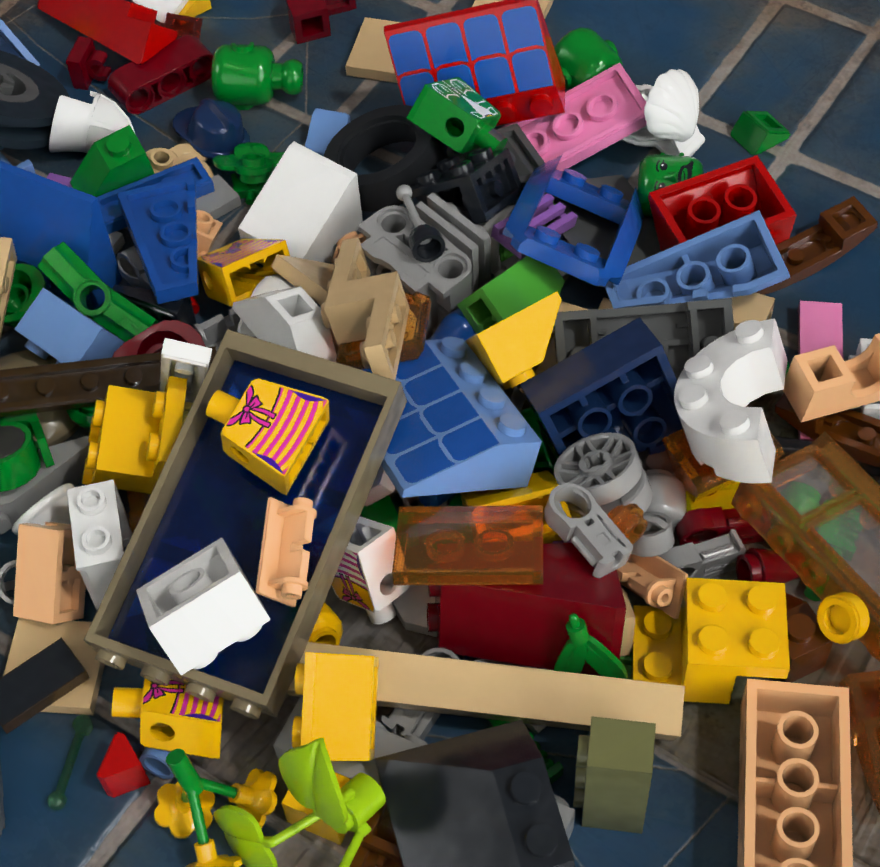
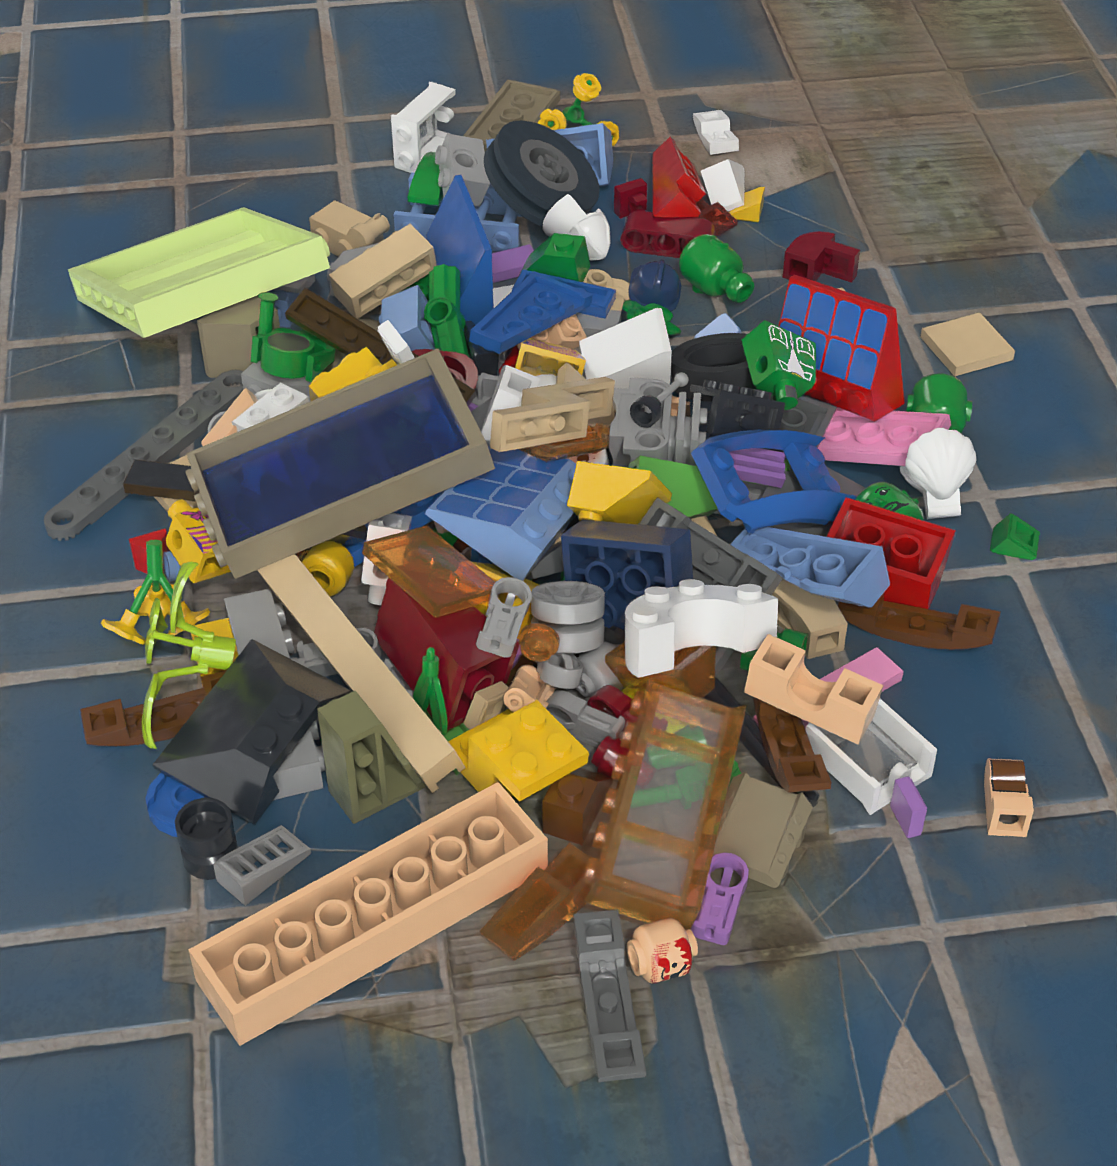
camera: 45 degrees right, 10 degrees down
(82, 726) = (109, 544): clear green hinge -> none
(201, 607) = (245, 476): white slope -> none
(270, 429) = (389, 415): torso -> none
(282, 556) = (320, 481): light nougat hinge -> none
(338, 704) = (256, 587): yellow slope -> none
(843, 617) = (594, 798): yellow tile -> none

